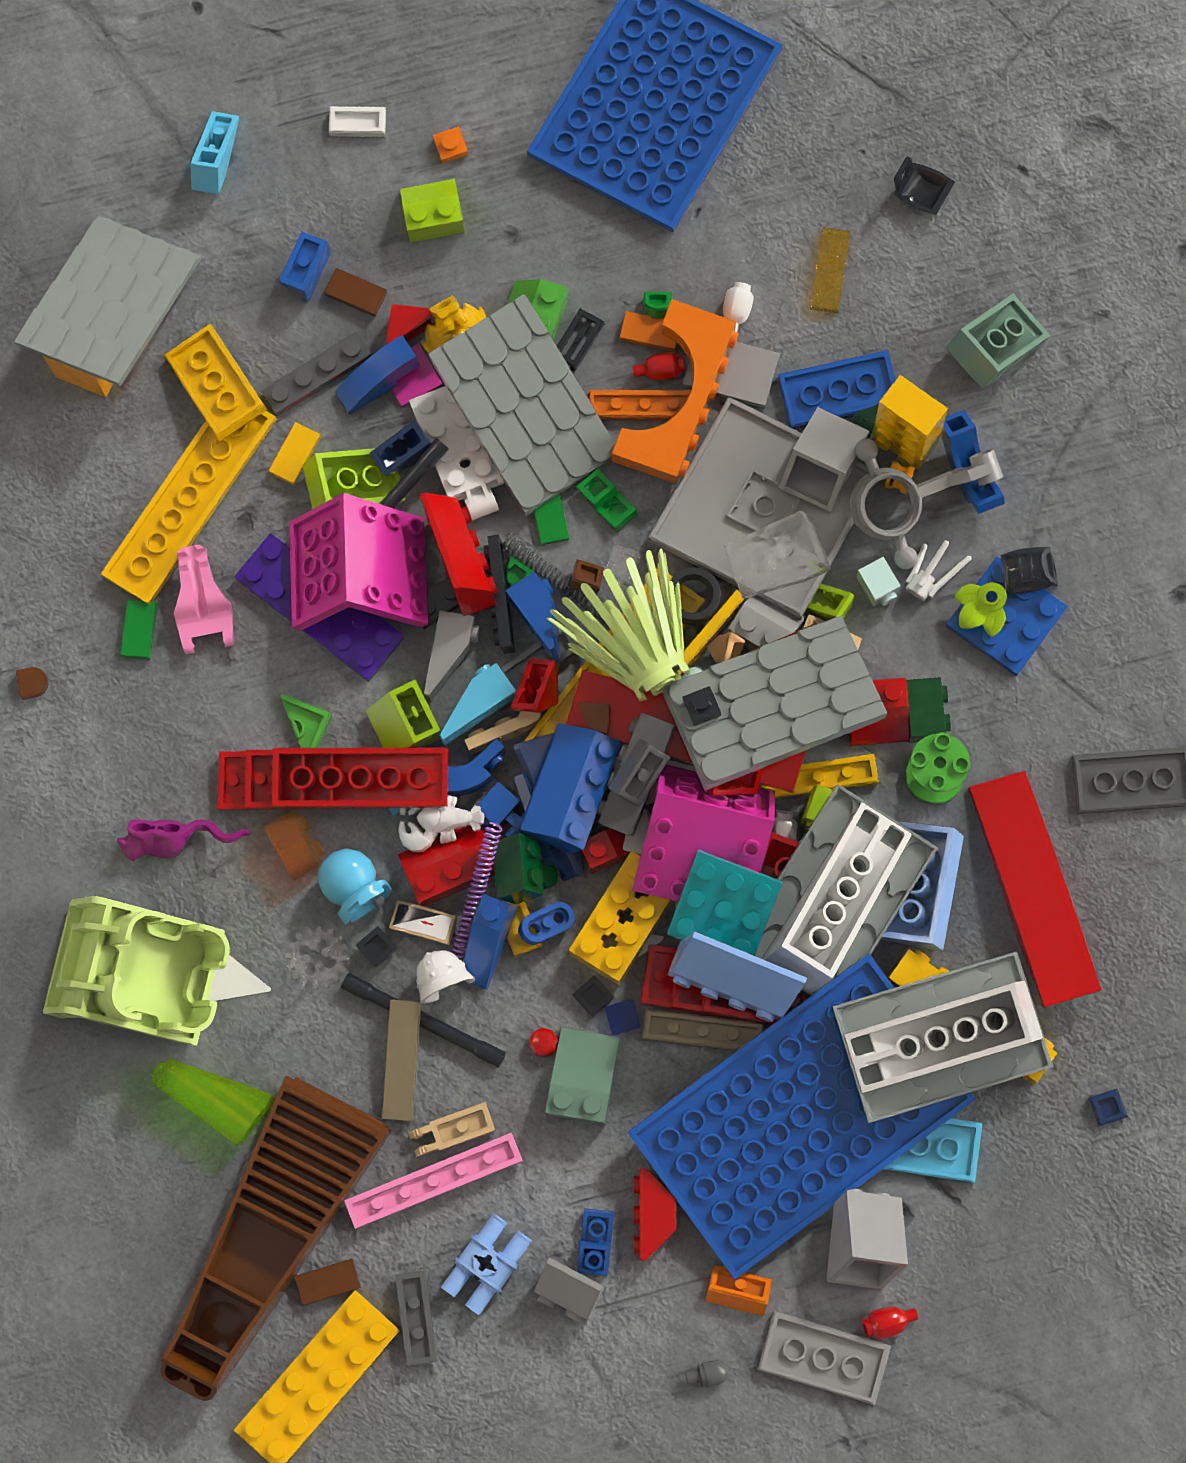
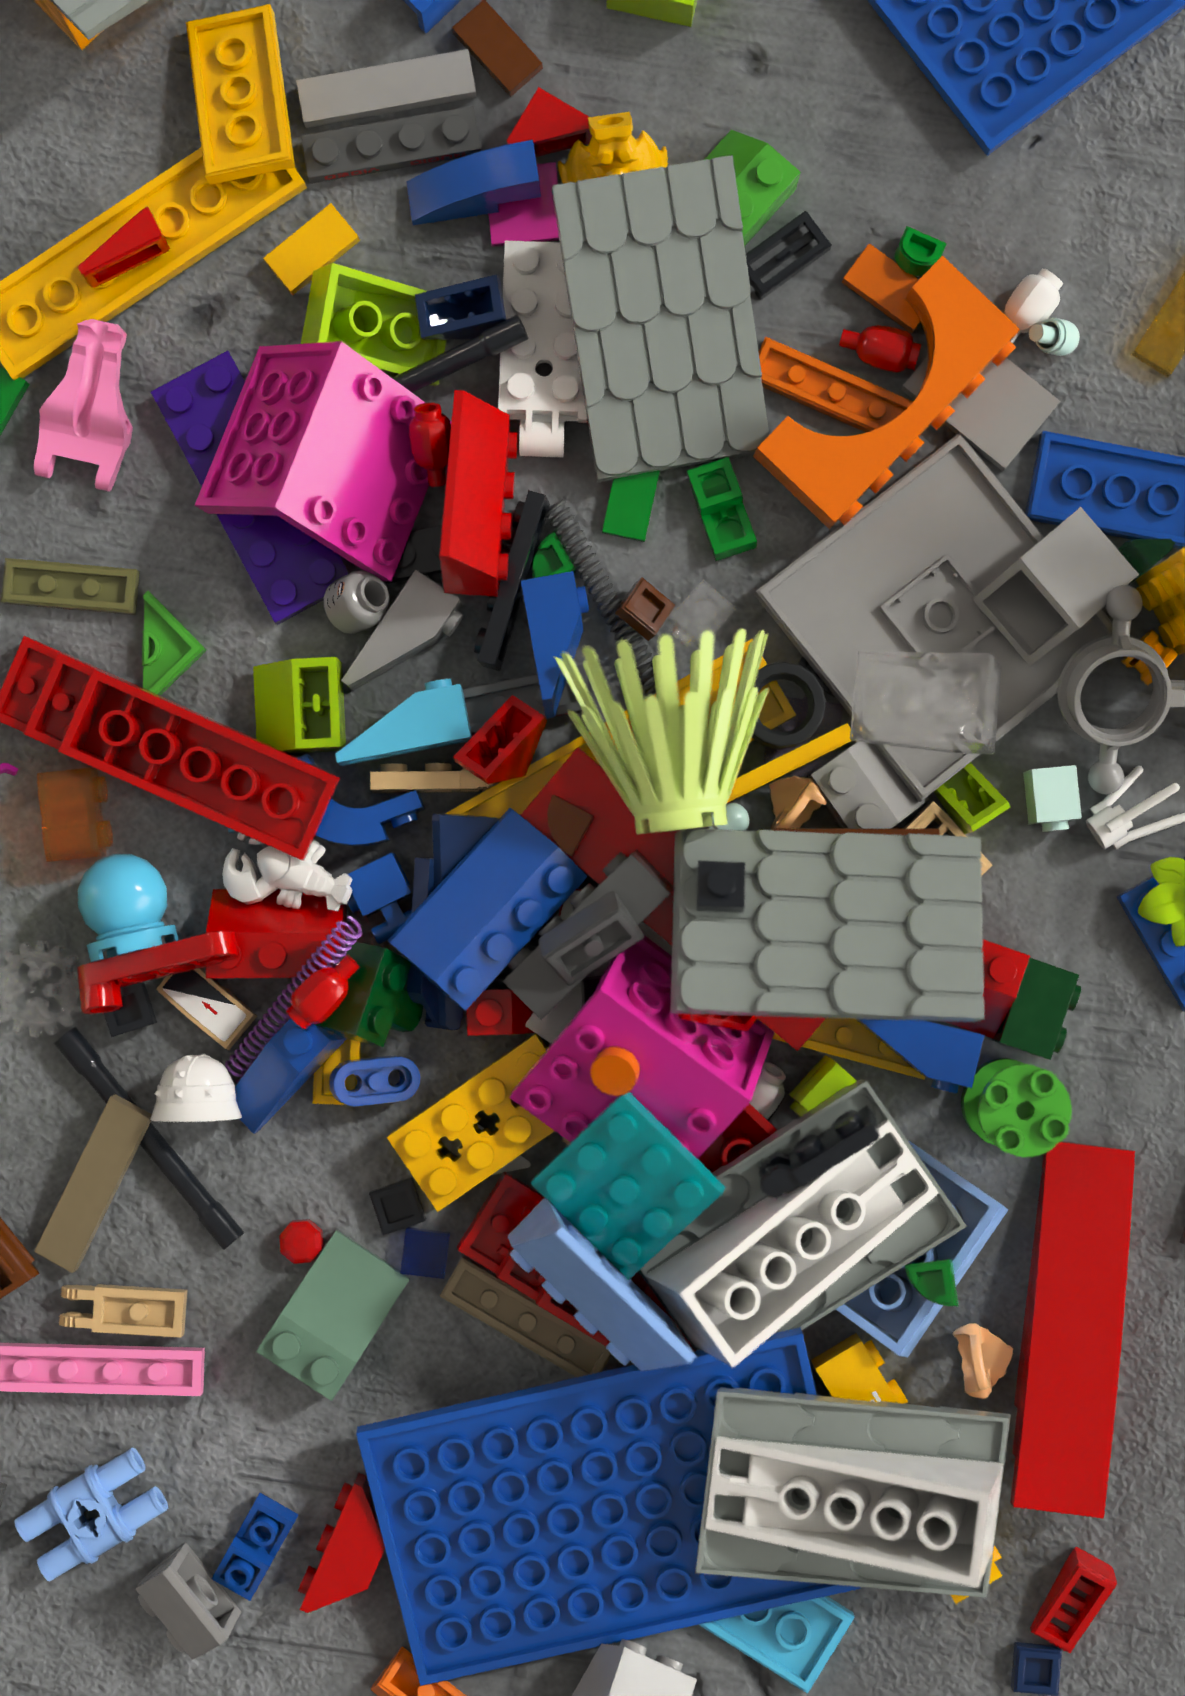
camera: 15 degrees right, 10 degrees up
(190, 494) = (125, 250): none -> red slope
(233, 712) = (70, 586): none -> olive tile
(299, 343) = (386, 88): none -> light grey tile
(356, 929) = (102, 979): none -> red beam
(412, 645) = (356, 602): none -> light grey head
(418, 531) = (430, 441): none -> red plant
(493, 875) = (321, 993): none -> red plant
(687, 839) = (615, 1071): none -> orange tile
(760, 317) = (1055, 336): none -> light aqua cylinder
(828, 838) = (818, 1153): none -> black hinge
(868, 758) = (932, 1049): none -> blue slope
(934, 889) = (934, 1281): none -> green tile
(989, 931) = (983, 1359): none -> light nougat piece
(1101, 1043) = (1070, 1576): none -> red slope

